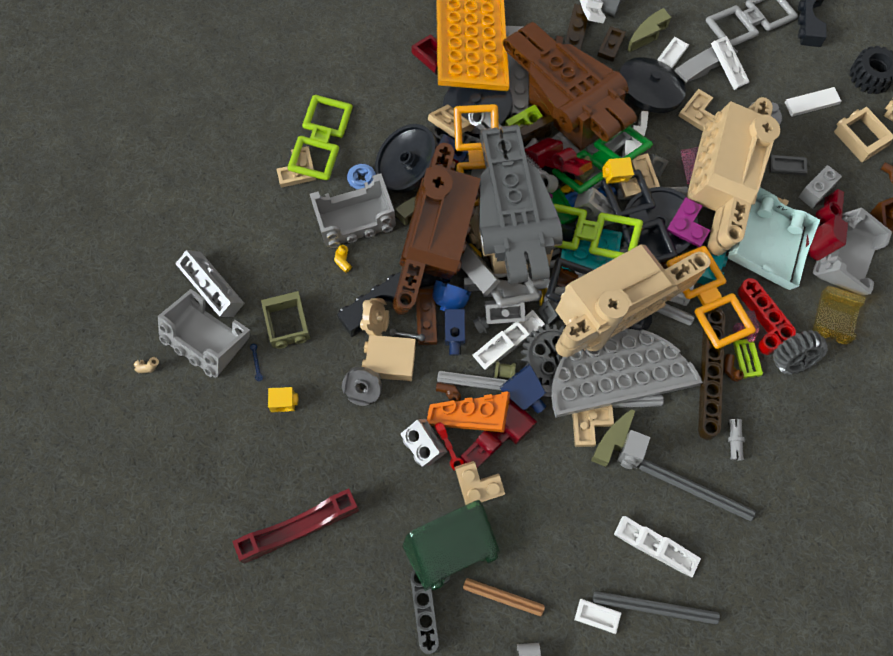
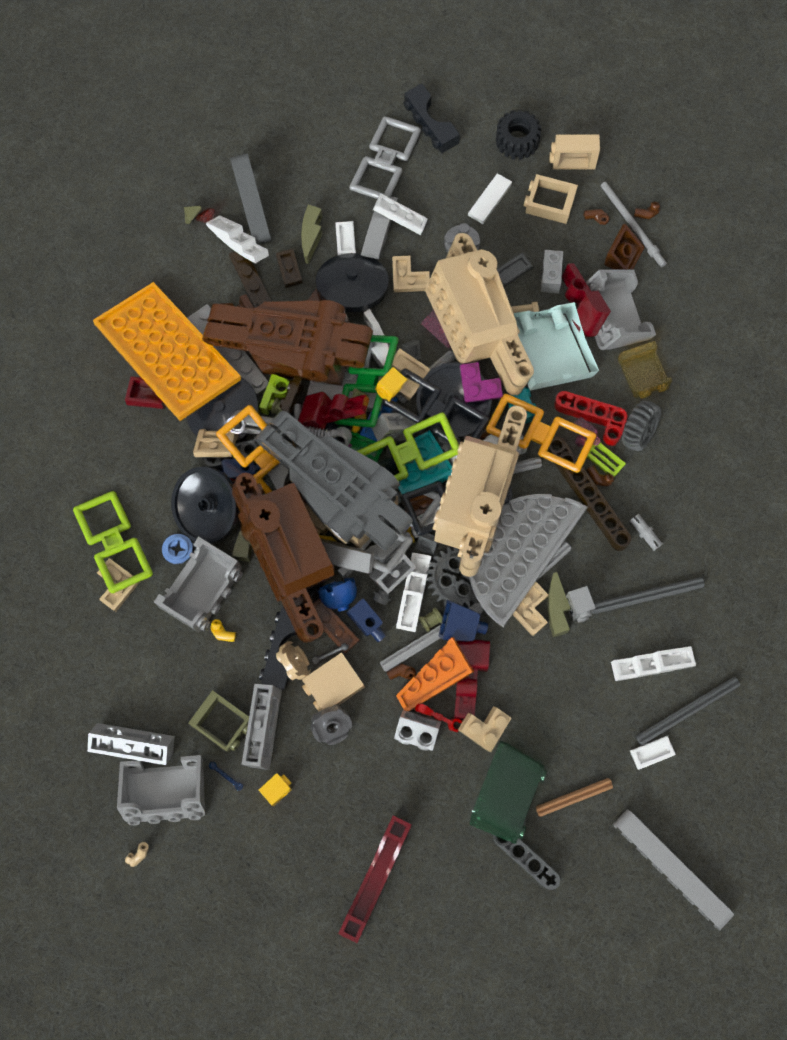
camera: 35 degrees left, 5 degrees up
(311, 346) = (262, 726): none -> light grey brick

